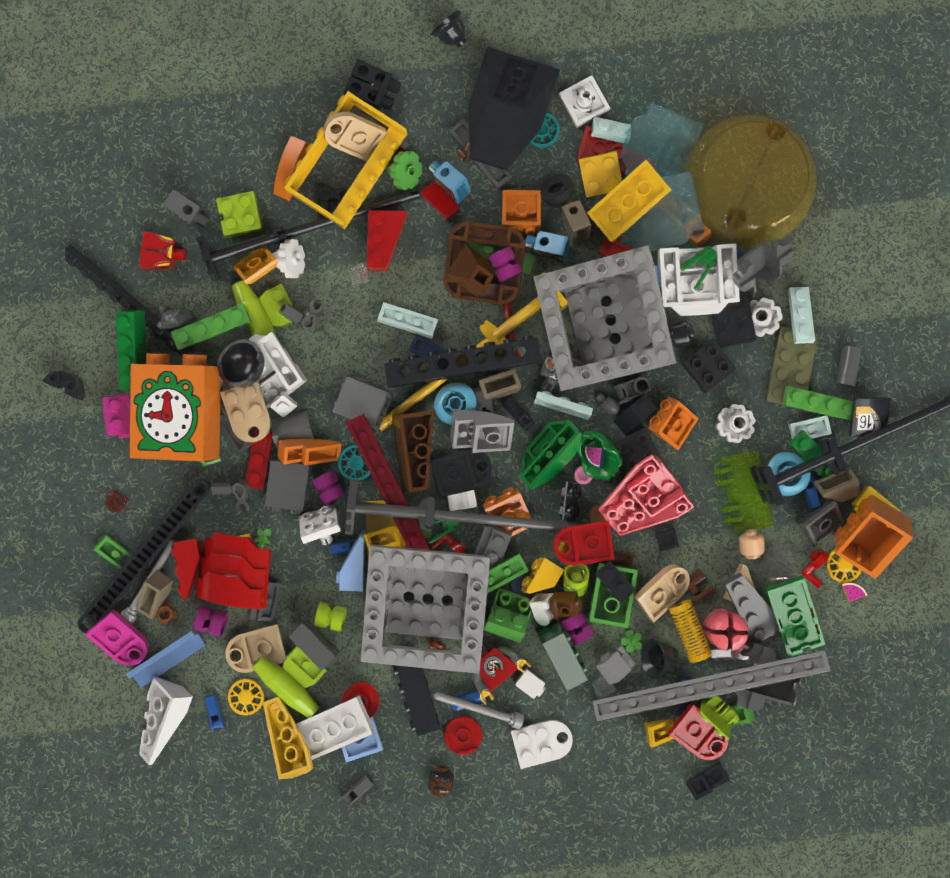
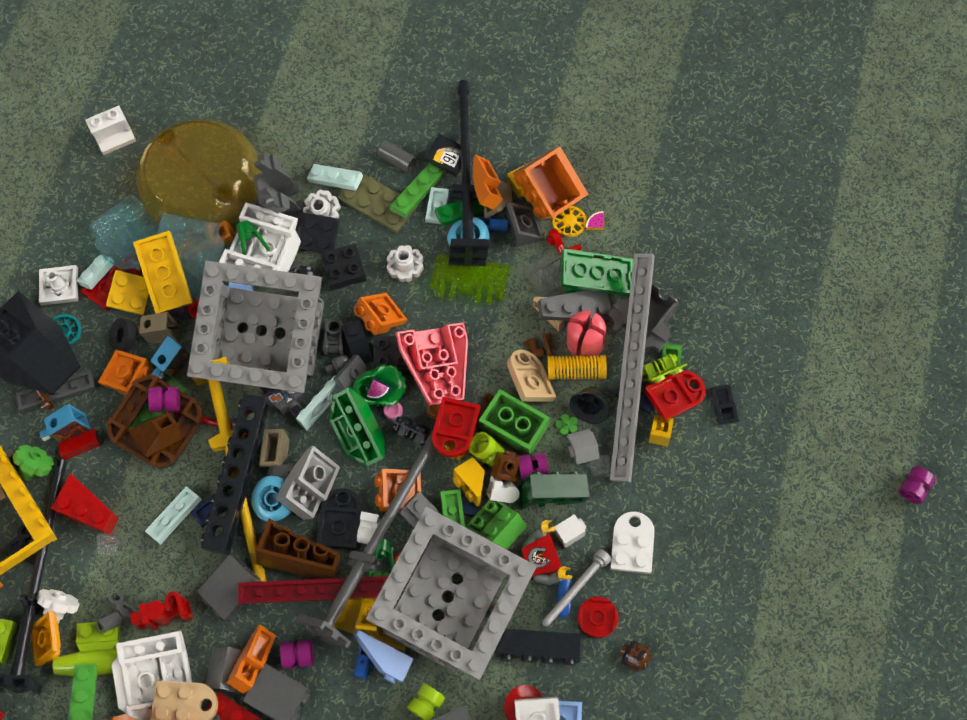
camera: 65 degrees left, 20 degrees down
(241, 363) = (131, 687): black cylinder -> none
(283, 404) = (194, 668): white plate -> none
(311, 347) = (161, 614): none -> red hips
(319, 524) = (329, 676): white plate -> none
(355, 463) = (285, 620): teal wheel -> none
(516, 412) = (318, 441): black bar -> none
(601, 422) = (349, 373): none -> dark grey plate
(615, 581) = (501, 411): black plate -> none
(667, 539) = (484, 359): black tile -> none
(730, 656) = (611, 340): flat silver plate -> none
(751, 544) = (518, 287): light nougat head -> none
(764, 69) = (111, 130): none -> white panel
(849, 472) = (486, 183): none -> orange slope

